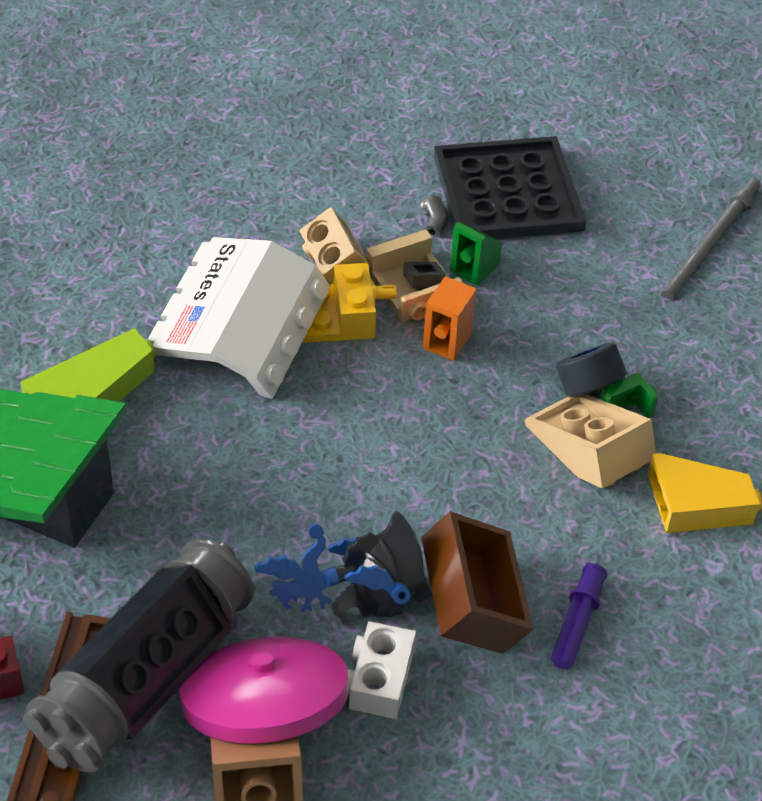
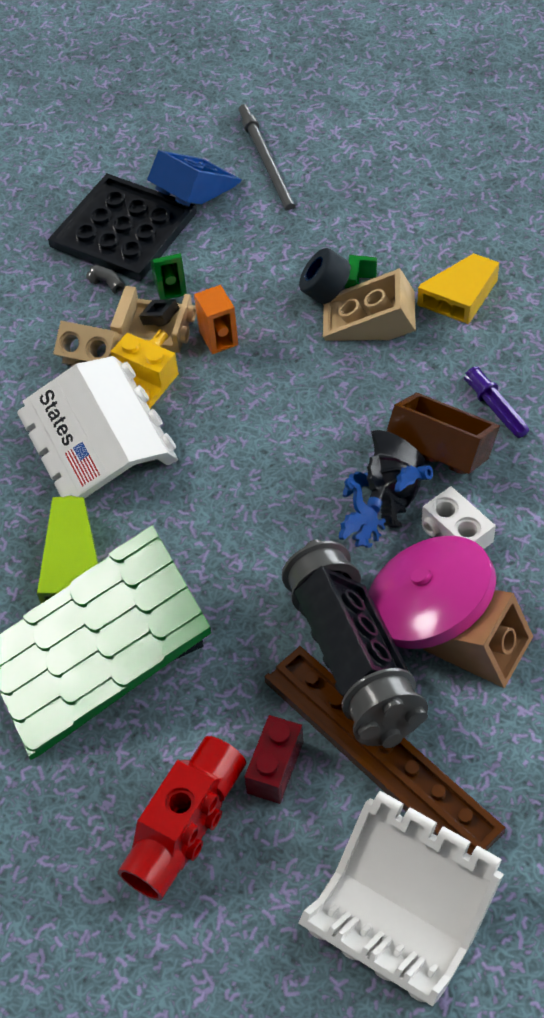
camera: 45 degrees left, 5 degrees up
(612, 195) = (189, 178): none -> blue slope

